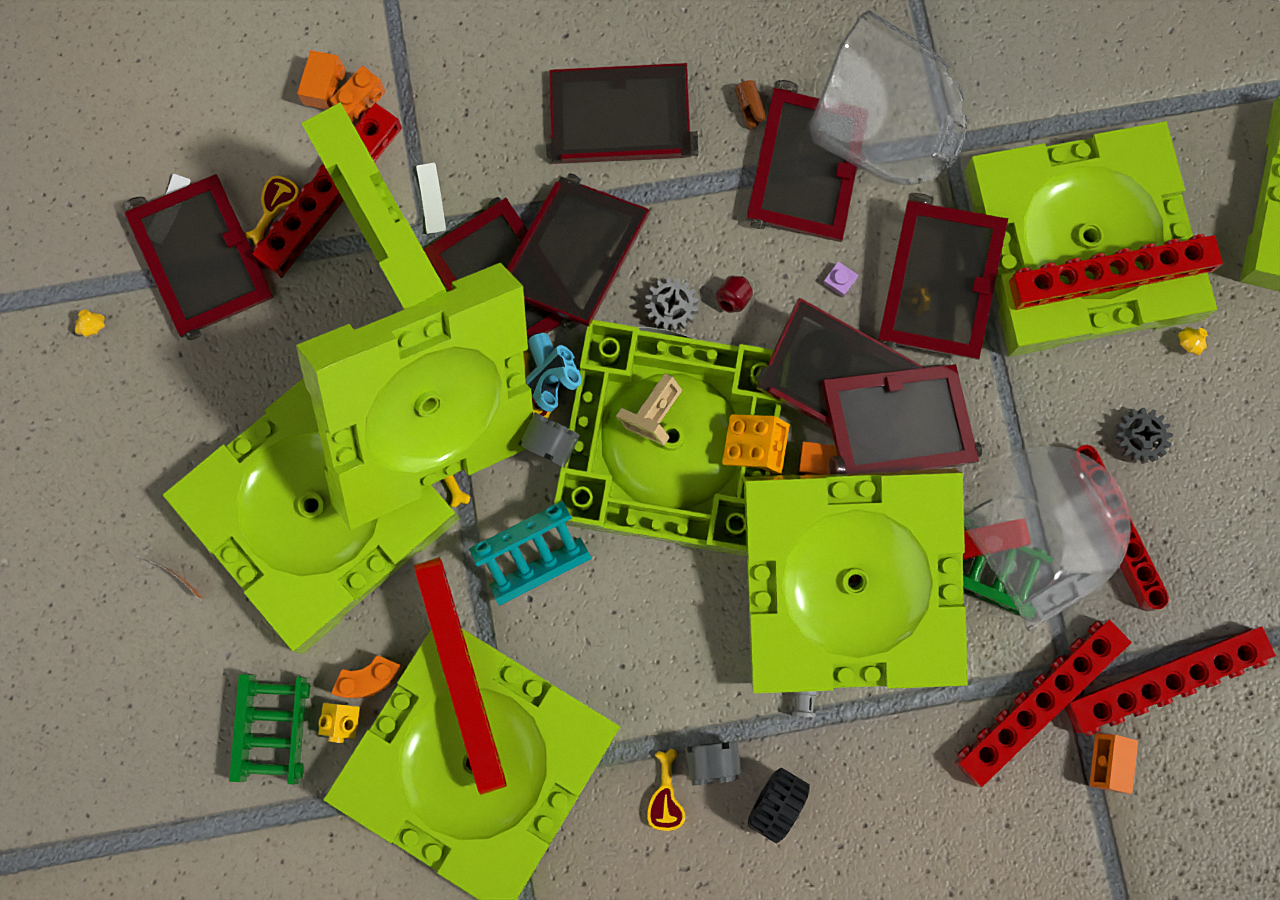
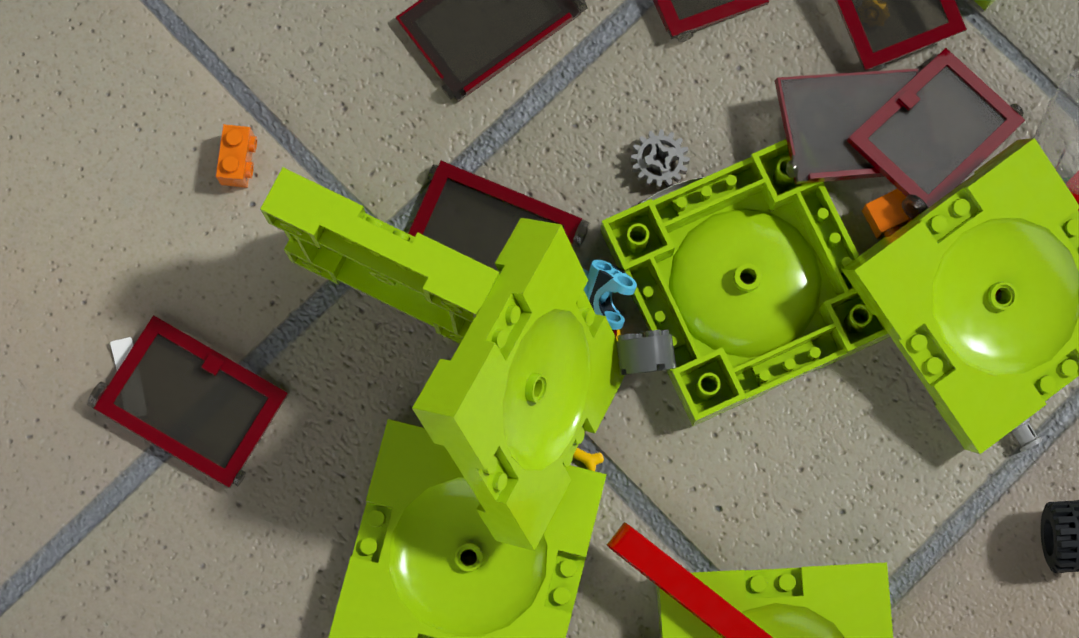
camera: 35 degrees left, 0 degrees up
(89, 323) = (134, 533): yellow piece -> none
(275, 197) = (224, 297): yellow piece -> none
(320, 79) = (191, 163): orange brick -> none
(326, 202) = (270, 357): red brick -> none
(431, 198) = (357, 192): white sticker -> none
(539, 571) = (714, 473): teal fence -> none
(576, 249) = (540, 163): clear smoke door -> none
(648, 419) = (716, 267): tan bracket -> none
(664, 810) = (968, 611): yellow piece -> none
(713, 761) = (986, 538): dark grey brick -> none
(734, 294) = (709, 113): dark red head -> none
(756, 442) = (826, 232): light orange bracket -> none
(840, 279) = (792, 38): lavender plate -> none

